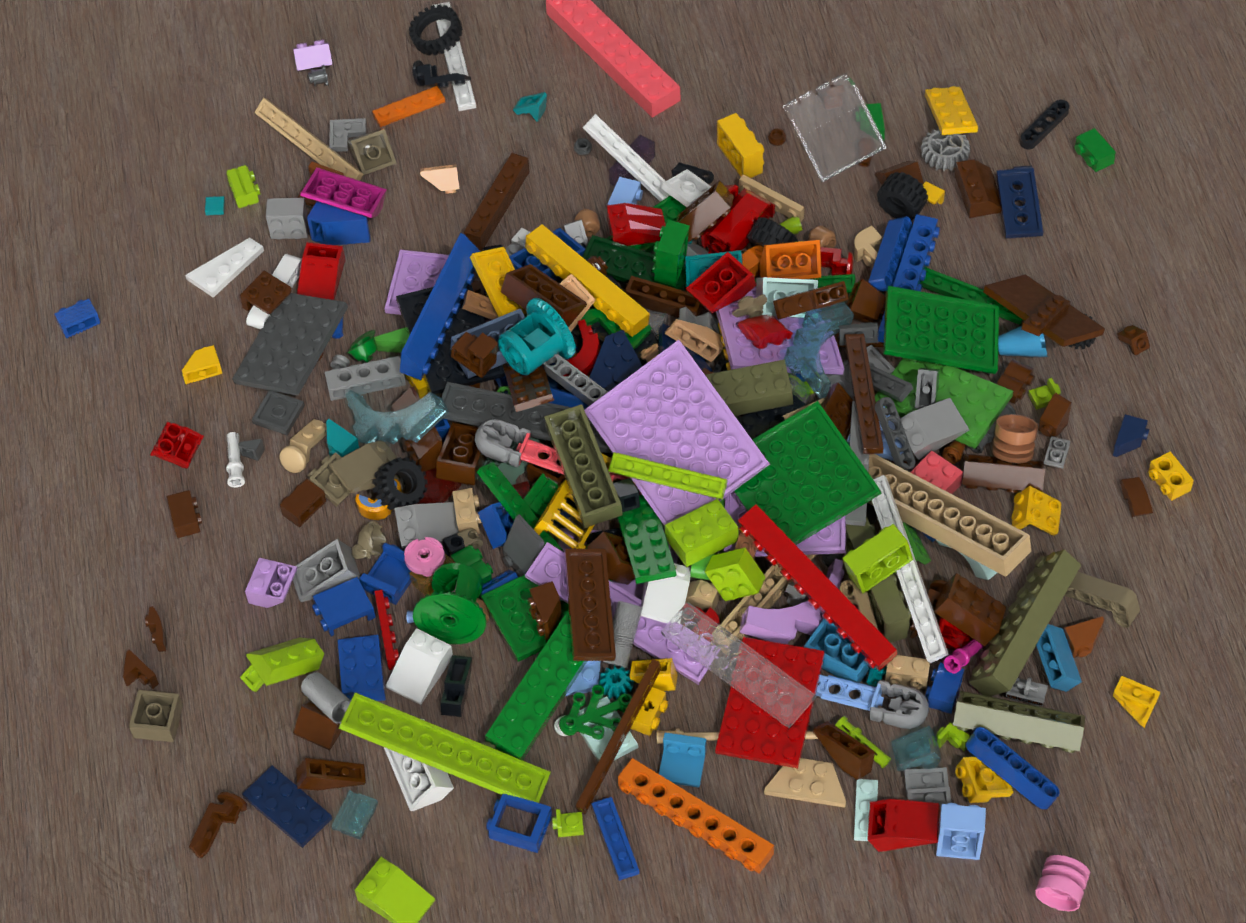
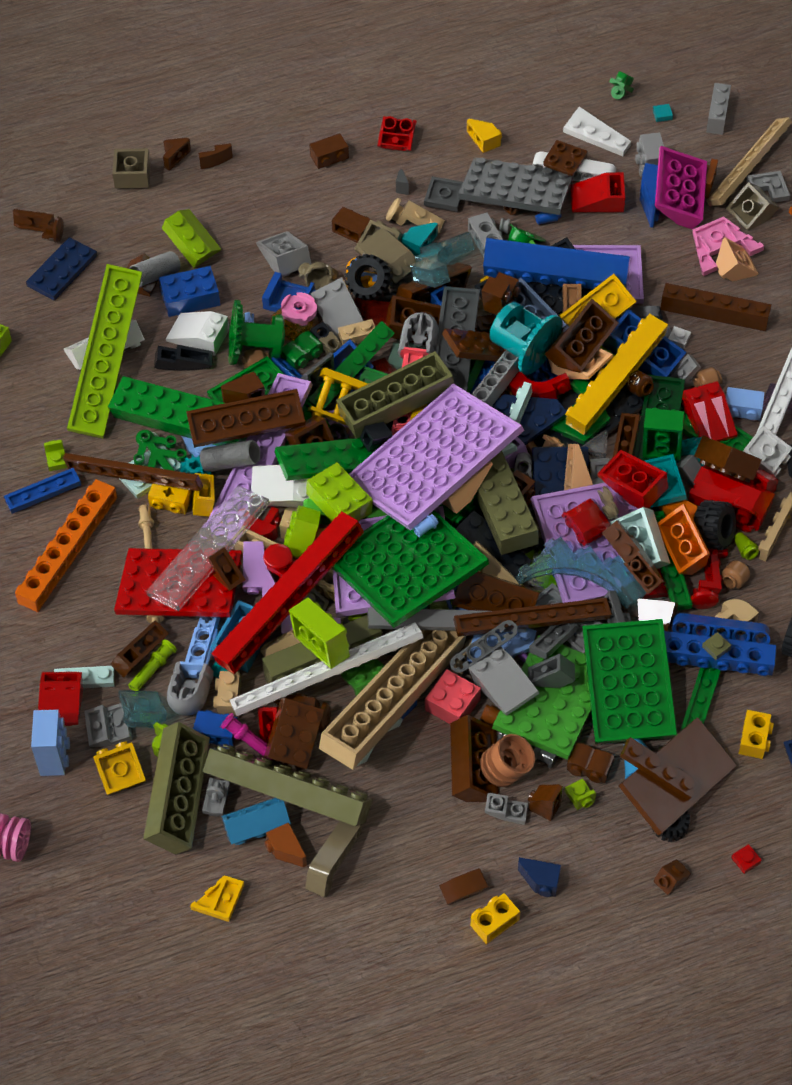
camera: 80 degrees right, 0 degrees up
(77, 318) = (516, 46): blue brick -> none
(169, 229) = (622, 83): none -> green hips
(227, 154) = (718, 108): none -> light grey brick
(235, 465) = (384, 175): white pin -> none
(242, 186) = (686, 125): lime brick -> none
(269, 583) = (266, 214): lavender slope -> none
(327, 774) = (88, 286): reddish brown slope -> none
(342, 605) = (251, 269): blue panel -> none
(355, 814) = (54, 311): clear light blue plate -> none
(386, 621) = (225, 303): red plate -> none
(405, 188) = (709, 240): none -> bright pink wing
(515, 839) = (43, 434): blue window -> none
(613, 363) = (523, 396): none -> light aqua plate
(668, 475) = (392, 459): lime tile -> none
(683, 759) = (120, 529): dark azure bracket -> none
(763, 447) = (425, 525): none -> light blue pin
(777, 592) = (278, 559): none -> red piece
(778, 644) = (226, 570): none -> reddish brown slope
(811, 782) = (109, 631): tan wing -> none
(914, 256) = (716, 646): none -> olive plate
(995, 254) = (756, 734): none -> yellow brick
(1012, 768) = (128, 776): blue beam -> none
(1036, 509) = (430, 796): yellow bracket -> none
(1118, 284) = (746, 858): none -> red plate

